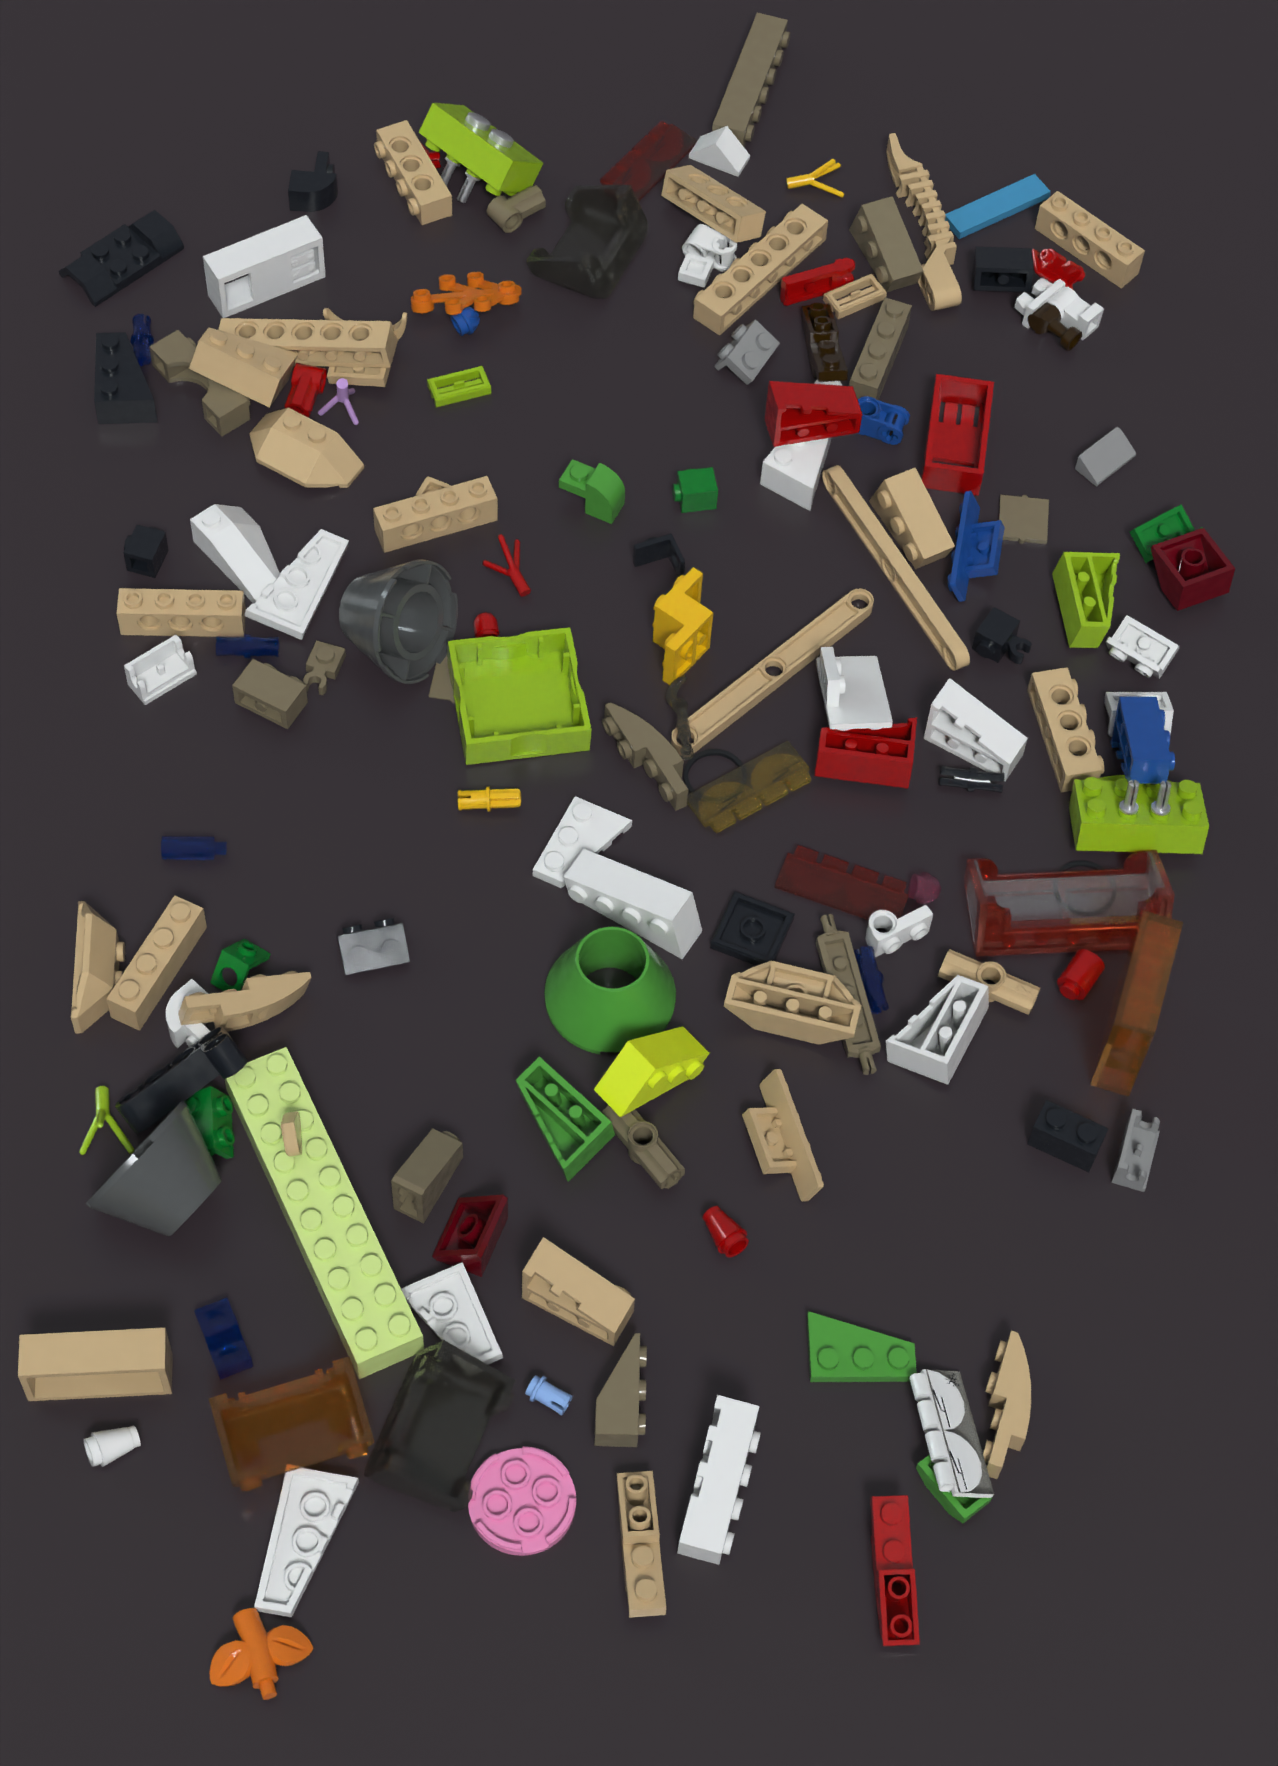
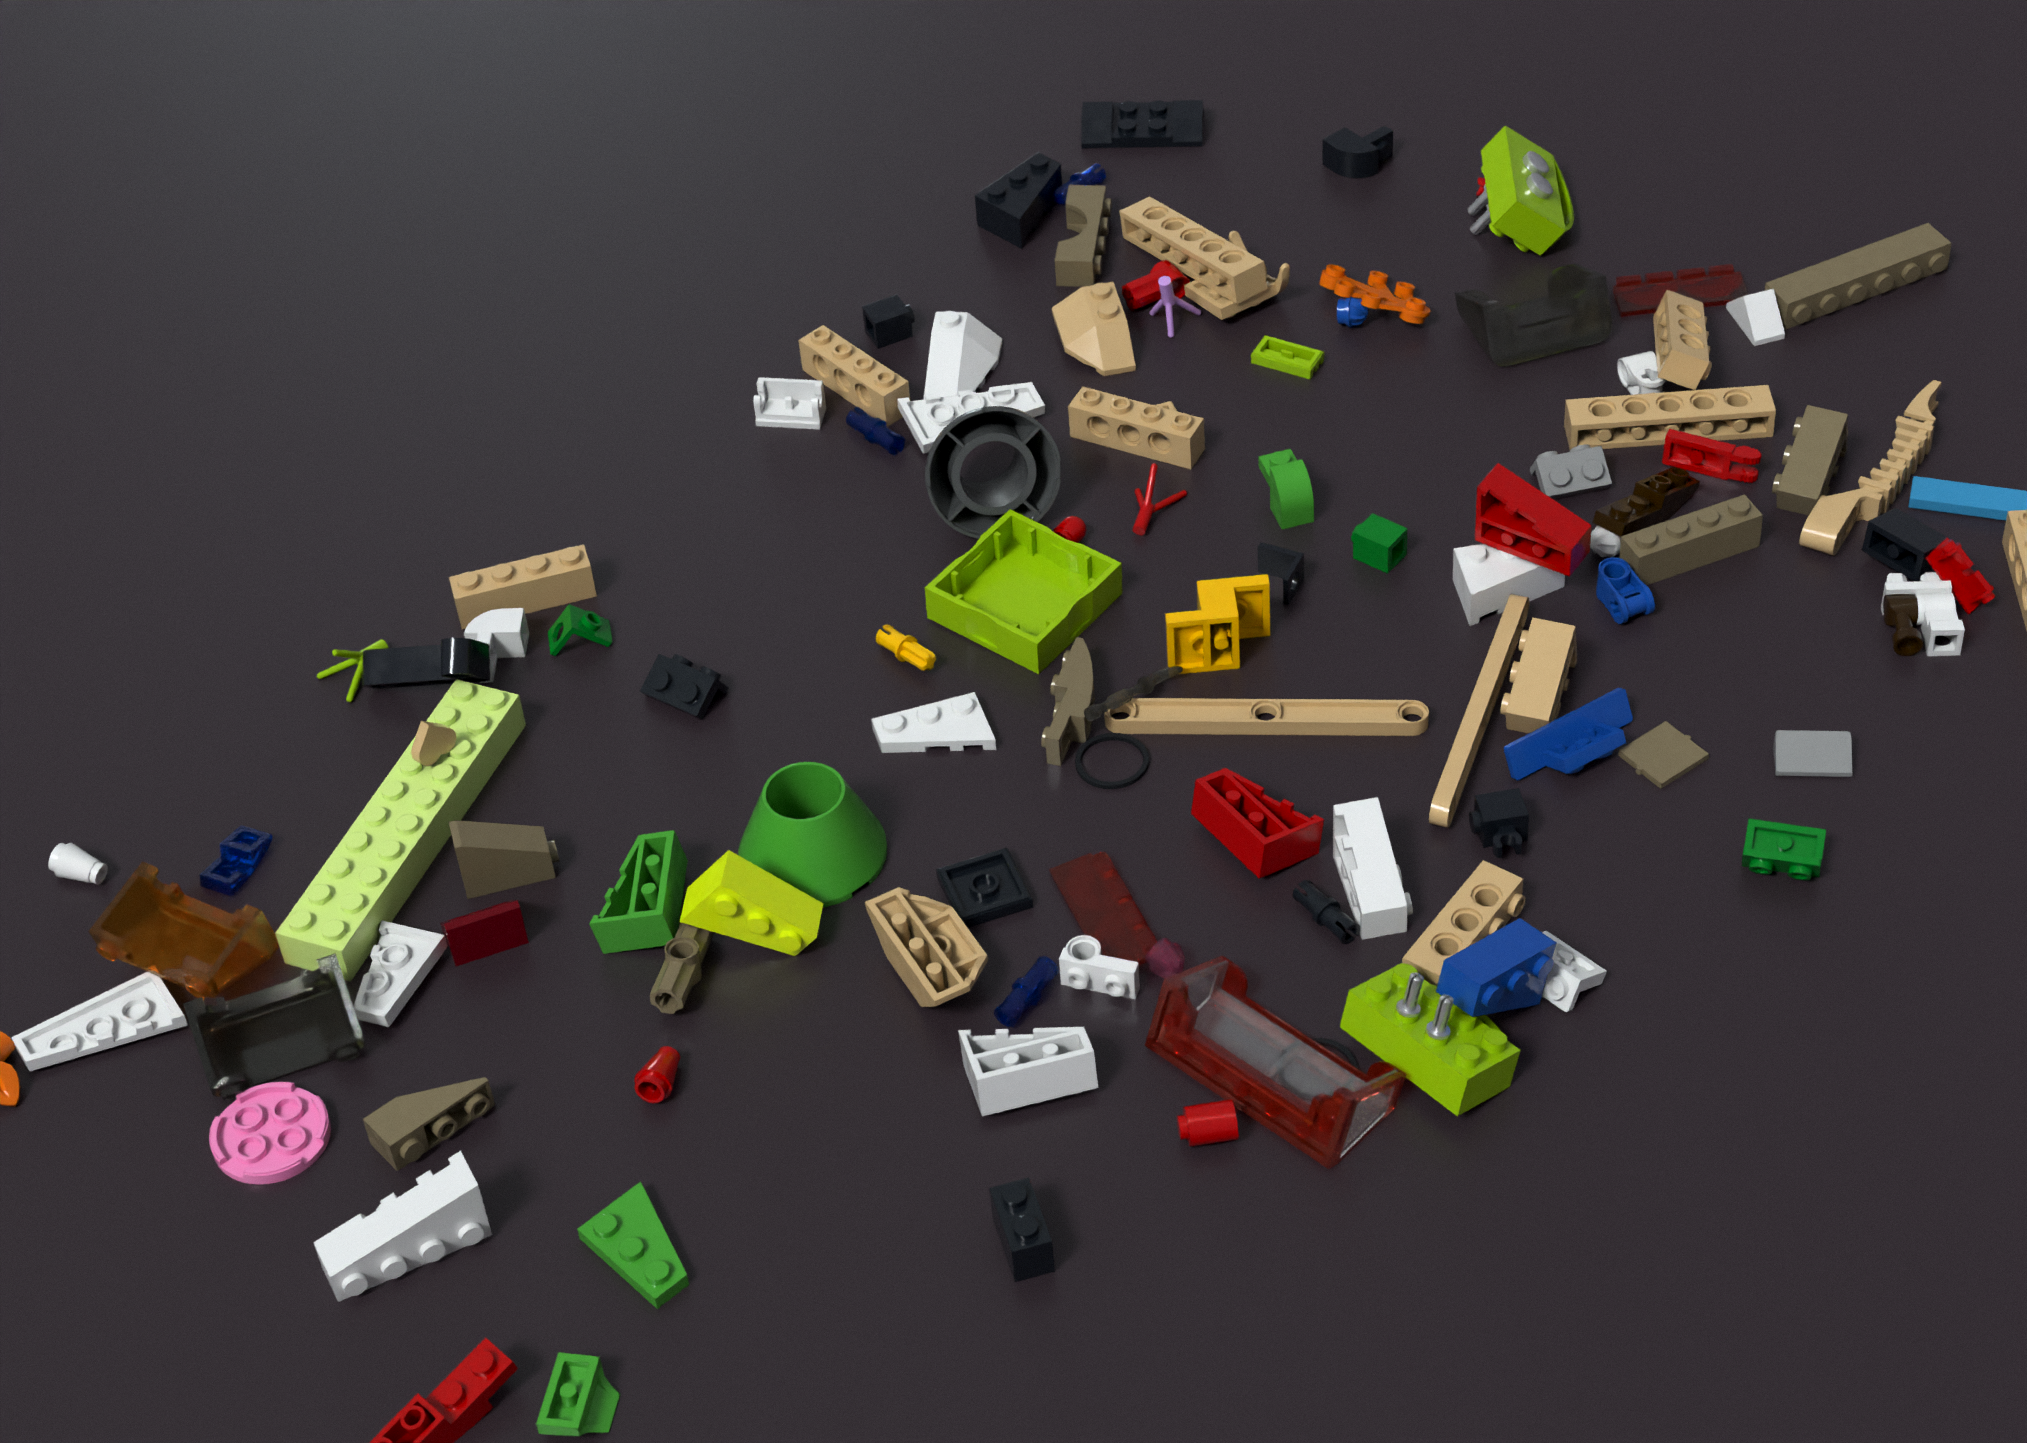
camera: 55 degrees right, 15 degrees down
(94, 967) = (487, 540): tan wedge -> none
(95, 1364) = (128, 799): tan piece -> none
(162, 1177) = (319, 701): dark grey cone -> none
(191, 848) = (651, 533): clear blue cylinder -> none
(213, 1116) = (403, 719): green bracket -> none
(243, 365) = (1117, 233): tan wedge -> none
(256, 1002) = (546, 656): tan slope -> none
(270, 693) = (842, 467): dark tan brick -> none
(274, 264) = (1235, 180): white piece -> none
(323, 663) = (910, 479): dark tan plate -> none
(413, 172) = (1451, 188): tan brick -> none
(510, 212) = (1498, 256): dark tan piece -> none
(548, 1394) = (381, 1071): light blue pin -> none
(576, 1293) = (488, 1016): tan wedge -> none
(636, 901) = (910, 795): white wedge -> none
(640, 1544) = (291, 1236): tan slope -> none
(695, 270) = (1607, 384): white plate -> none
(743, 786) = (1137, 784): clear yellow windscreen -> none
(781, 1138) = (785, 1039): tan bracket -> none
(808, 179) = (1819, 378): yellow plant -> none
(839, 960) = (993, 985): dark tan plate -> none
(853, 691) = (1292, 759): white bracket -> none
(857, 299) = (1723, 487): tan tile -> none
(951, 1433) = (613, 1355): white windscreen -> none
(954, 442) = (1673, 652): red piece -> none
(1007, 988) = (1121, 1067): tan piece -> none
(1012, 1399) = (708, 1377): tan slope -> none
(1085, 595) = (1629, 841): lime wedge -> none
(1136, 1152) = (1068, 1291): light grey hinge -> none
(1137, 1003) = (1192, 1153): clear orange tile -> none
(1142, 647) = (1629, 920): white bracket -> none
(1192, 569) = (1763, 887): dark red slope -> none

